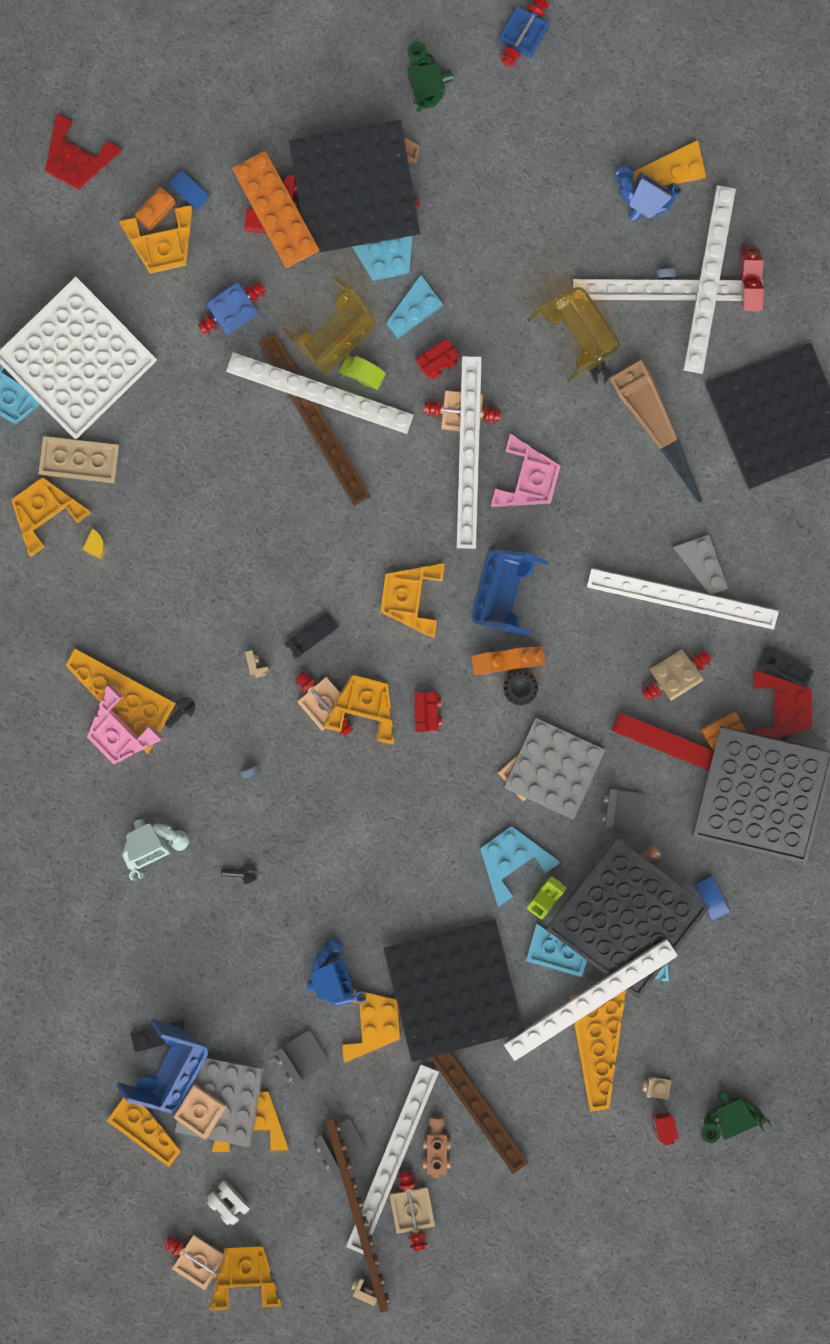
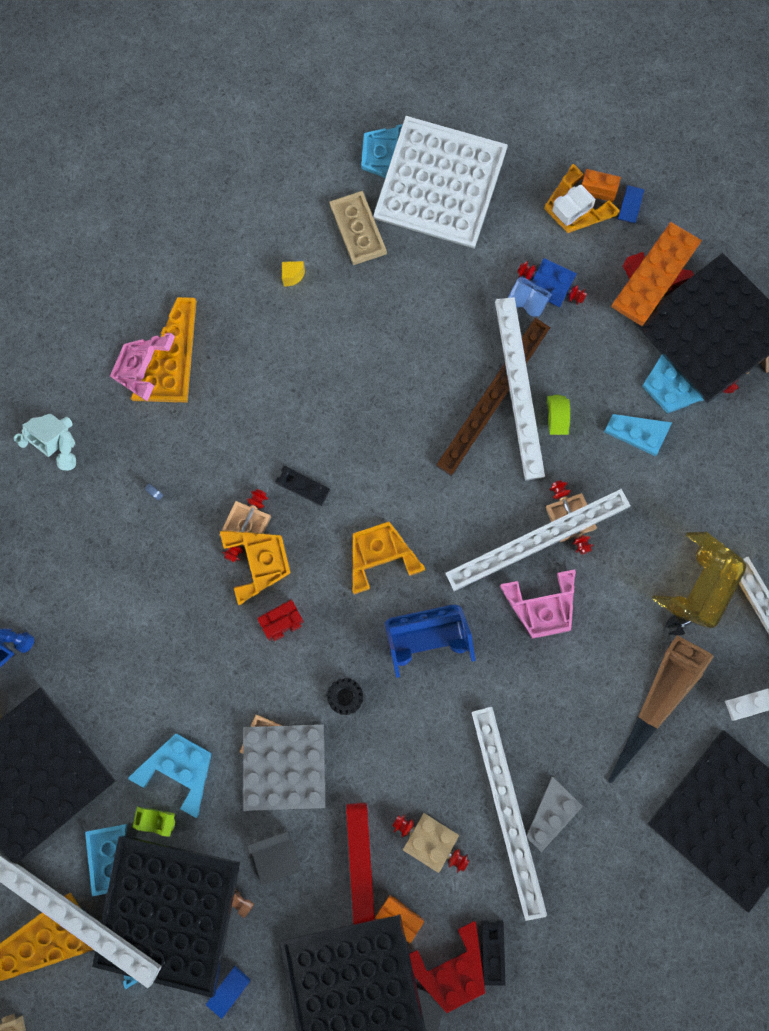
camera: 70 degrees right, 10 degrees down
(40, 504) = (302, 215): light orange wing -> none
(71, 163) = (598, 110): red wing -> none
(166, 246) = (573, 205): none -> white brick
(182, 710) = (181, 408): black bar -> none
(236, 336) = (530, 296): none -> medium blue brick
(240, 873) = (60, 528): black bar -> none
(253, 662) = (251, 447): tan bracket -> none
(339, 334) = (579, 381): clear yellow windscreen -> none
(437, 359) = (605, 472): red brick -> none
(508, 660) = (365, 672): orange arch -> none

